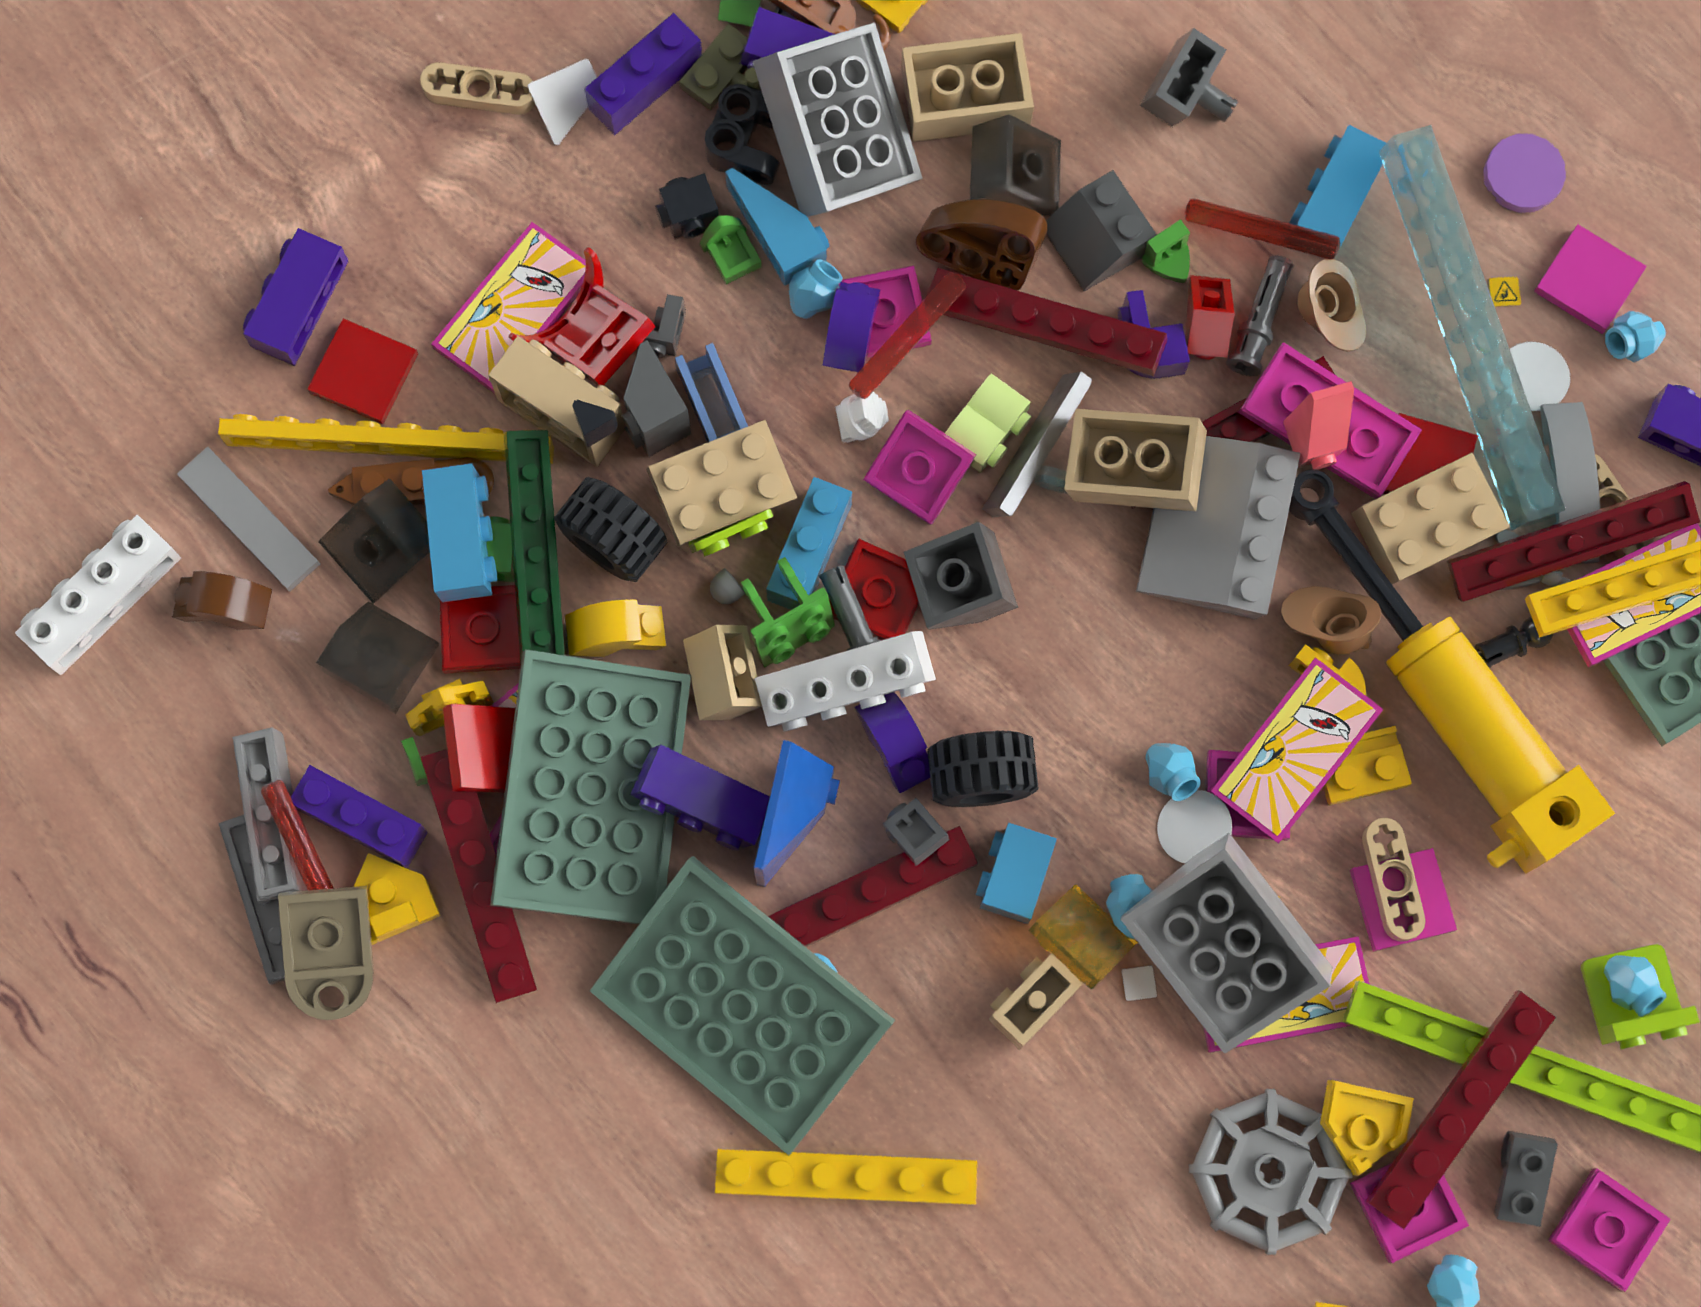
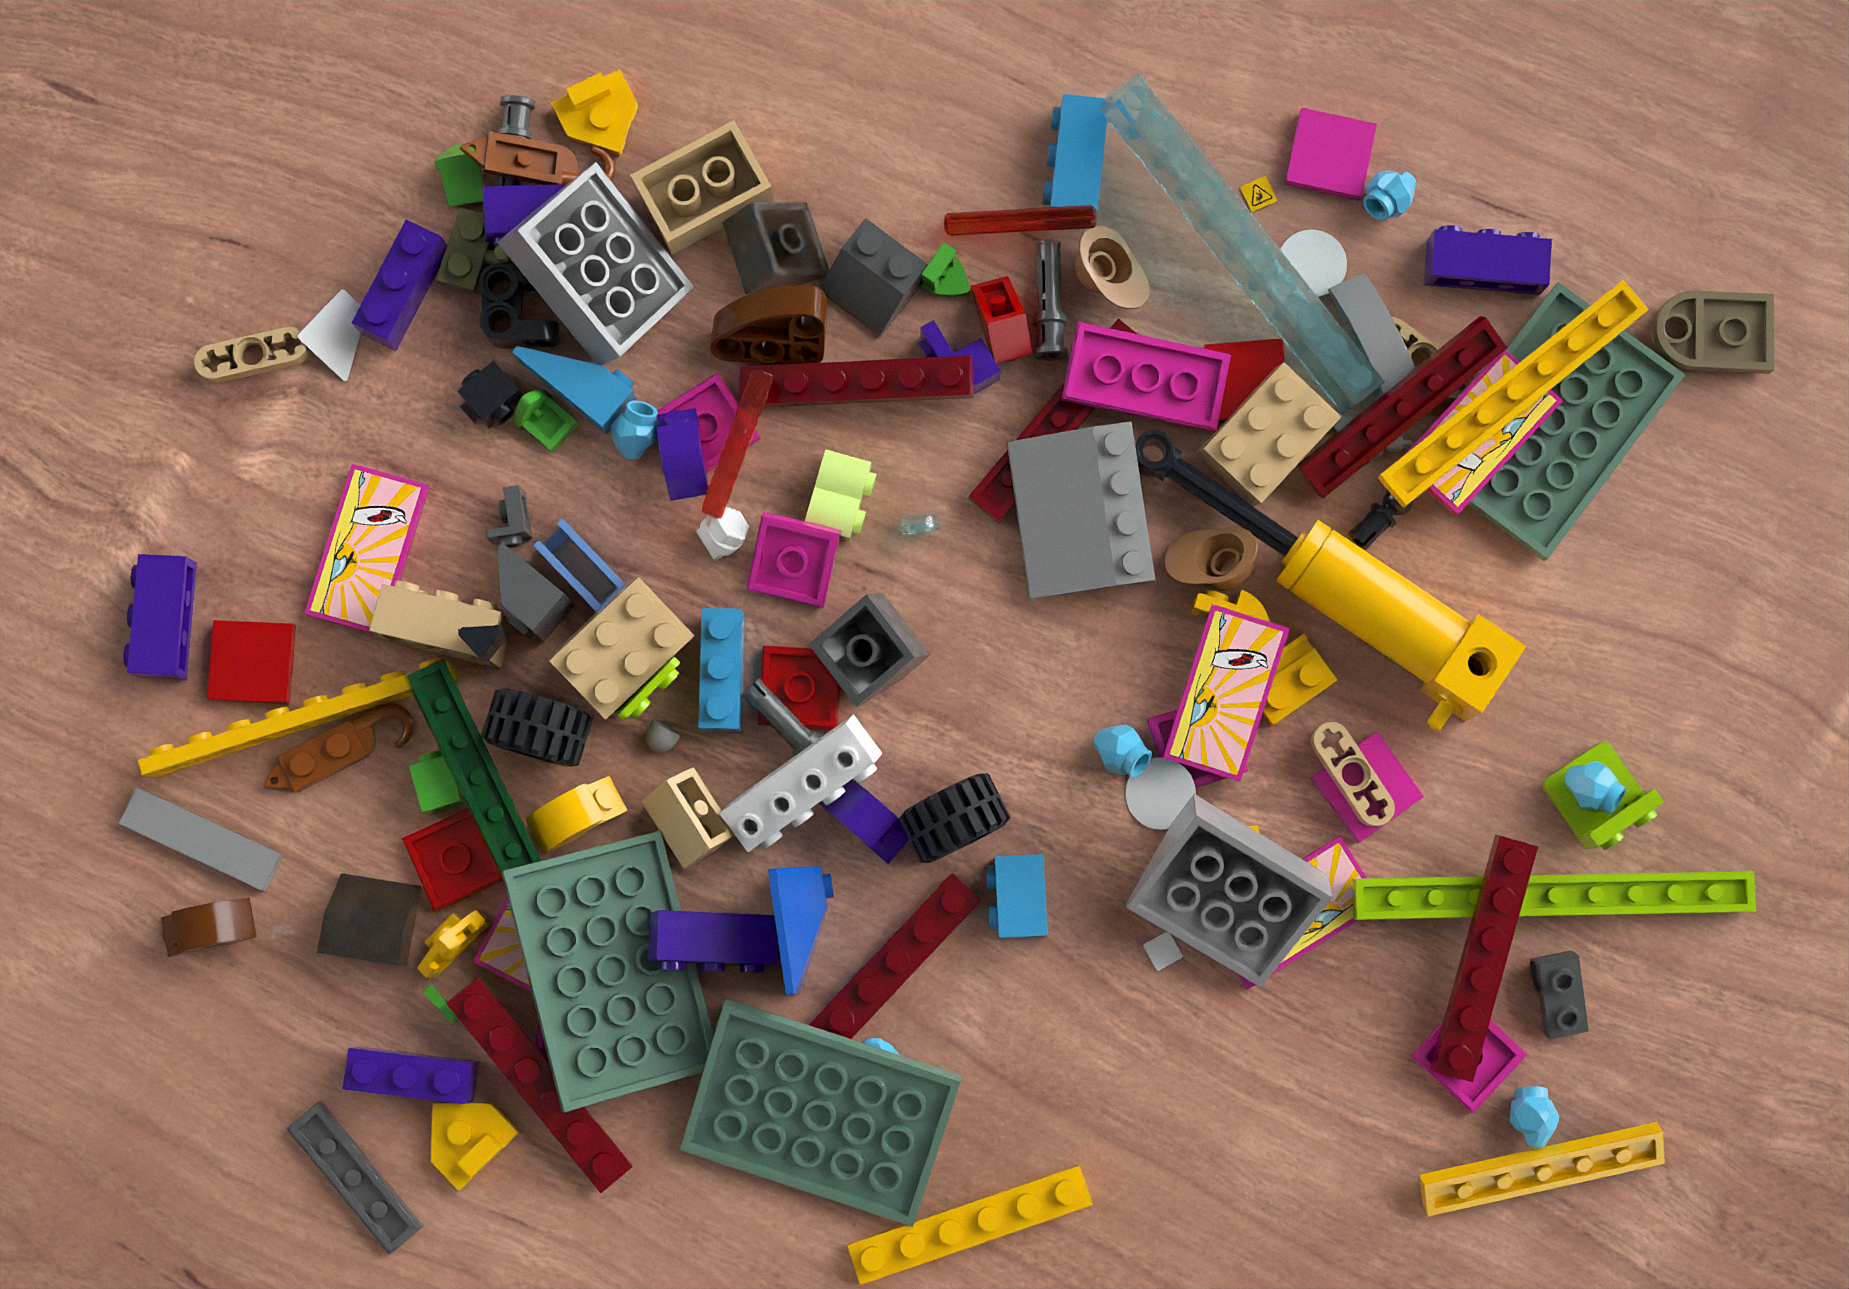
camera: 20 degrees left, 5 degrees up
(97, 594) = (91, 963): white brick -> none
(260, 760) = (331, 1109): light grey slope -> none
(295, 836) = (378, 1132): clear red axle -> none
(326, 945) = (428, 1202): dark tan plate -> none
(379, 540) = (331, 815): clear smoke slope -> none
(458, 532) = (399, 784): dark azure brick -> none
(478, 746) = (494, 973): red tile -> none
(596, 329) = (450, 546): red piece -> none
(808, 622) = (749, 742): bright green plate -> none
(915, 830) = (914, 895): dark grey bracket -> none
(1035, 1001) = (1078, 1006): tan brick -> none
(1037, 445) = (892, 498): flat silver tile -> none
(1082, 937) = (1098, 932): clear yellow tile -> none
(1125, 894) = (1123, 879): medium azure rock -> none
(1135, 459) = (986, 483): tan brick -> none
(1186, 81) = (900, 107): dark grey brick -> none
(1247, 1181) = (1320, 1090): light grey plate -> none
(1321, 425) = (1141, 393): coral slope -> none
(1364, 1122) = (1405, 1000): yellow plate -> none
(1524, 173) = (1237, 76): medium lavender tile -> none
(1609, 1229) = (1648, 1009): dark pink tile -> none

